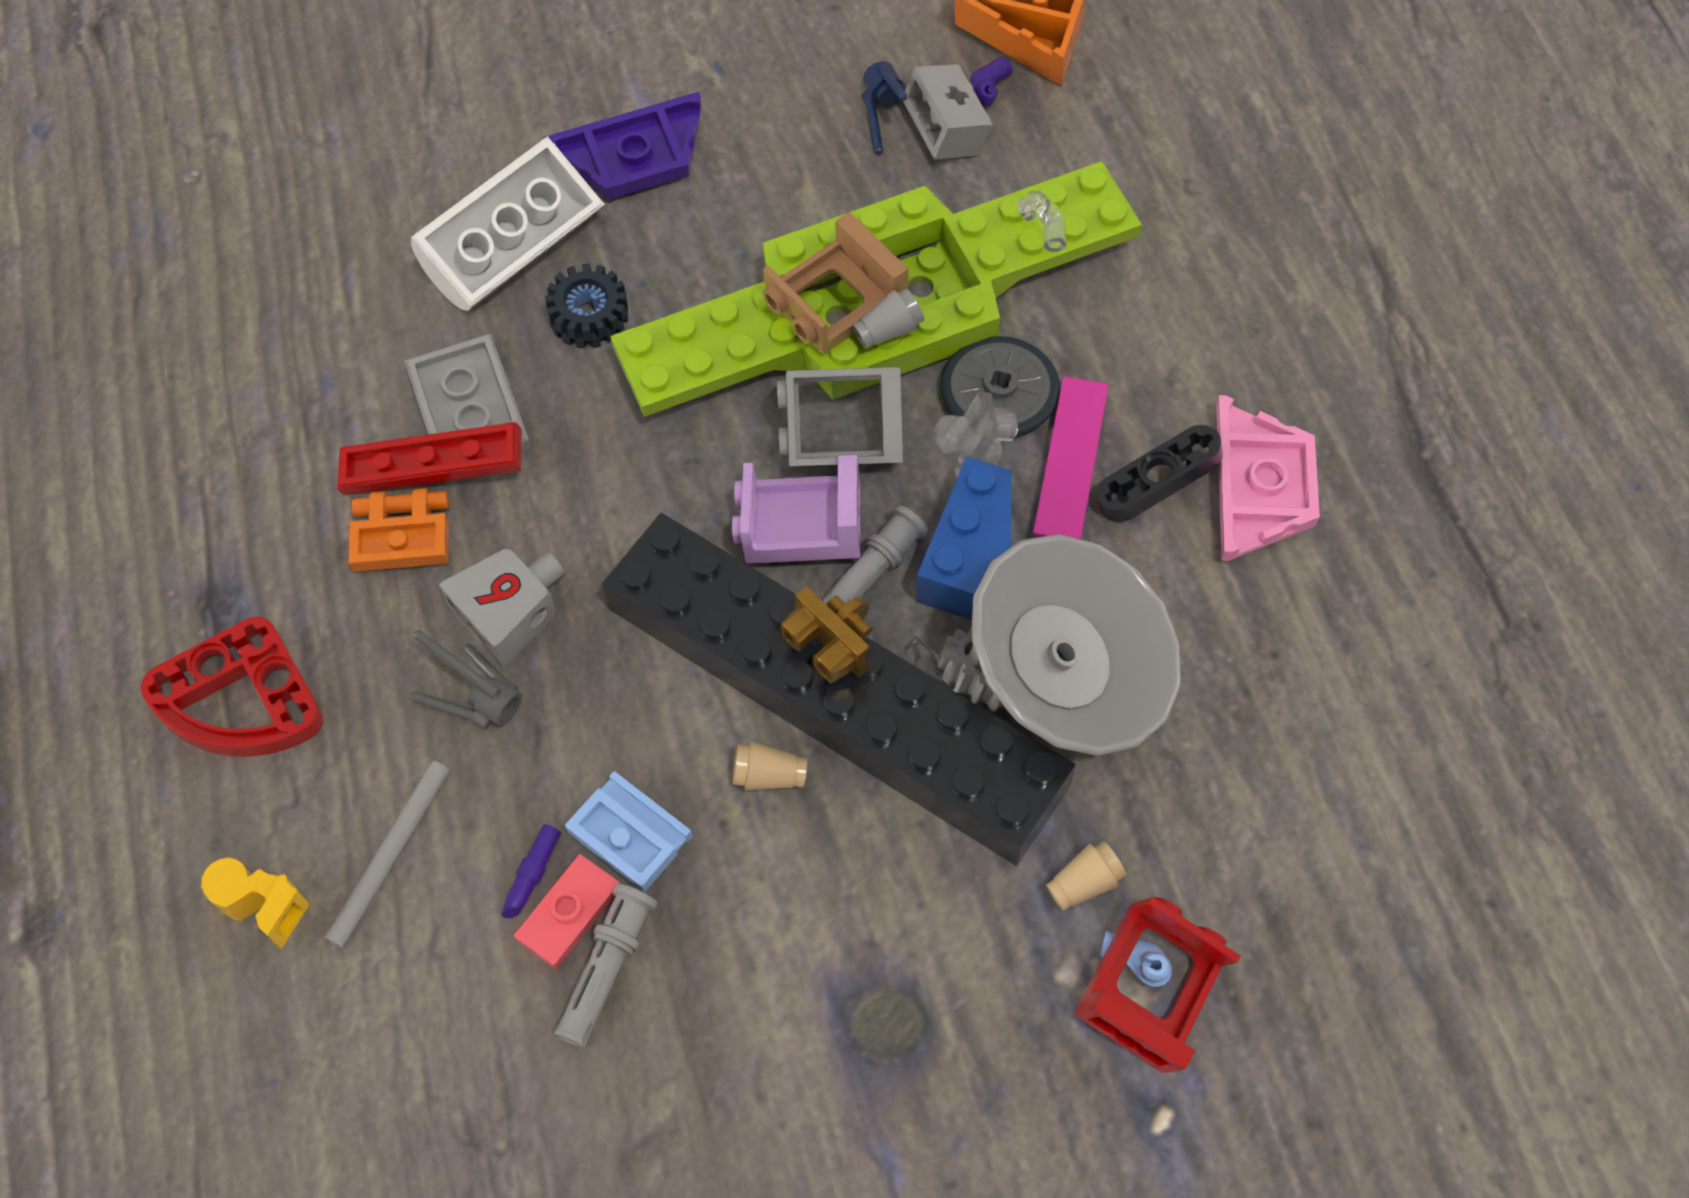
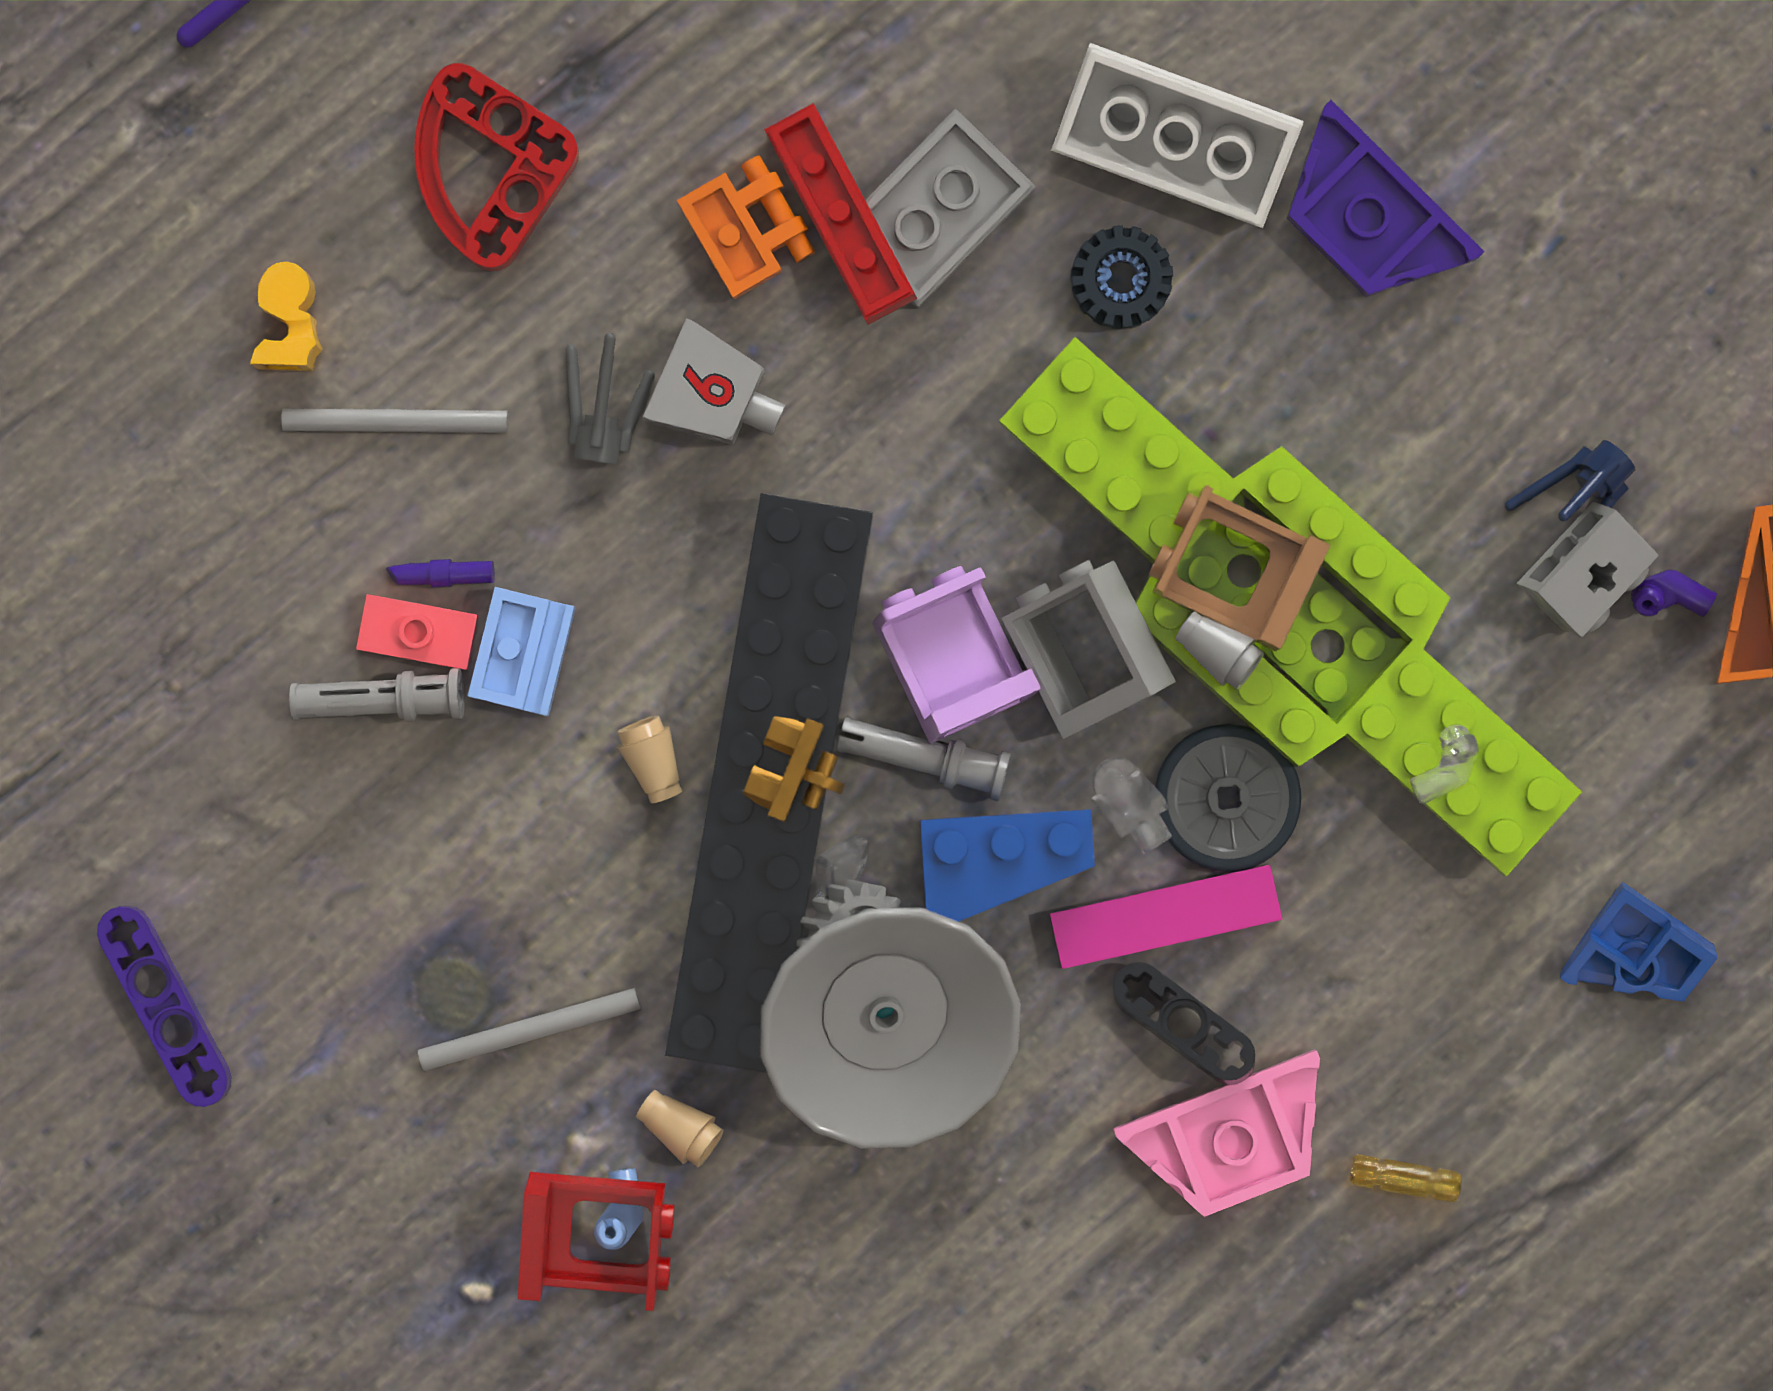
camera: 60 degrees right, 25 degrees up
(947, 971) = (529, 1029): none -> light grey bar
(1229, 183) = (1640, 949): none -> blue slope
(1339, 383) = (1405, 1178): none -> clear yellow axle

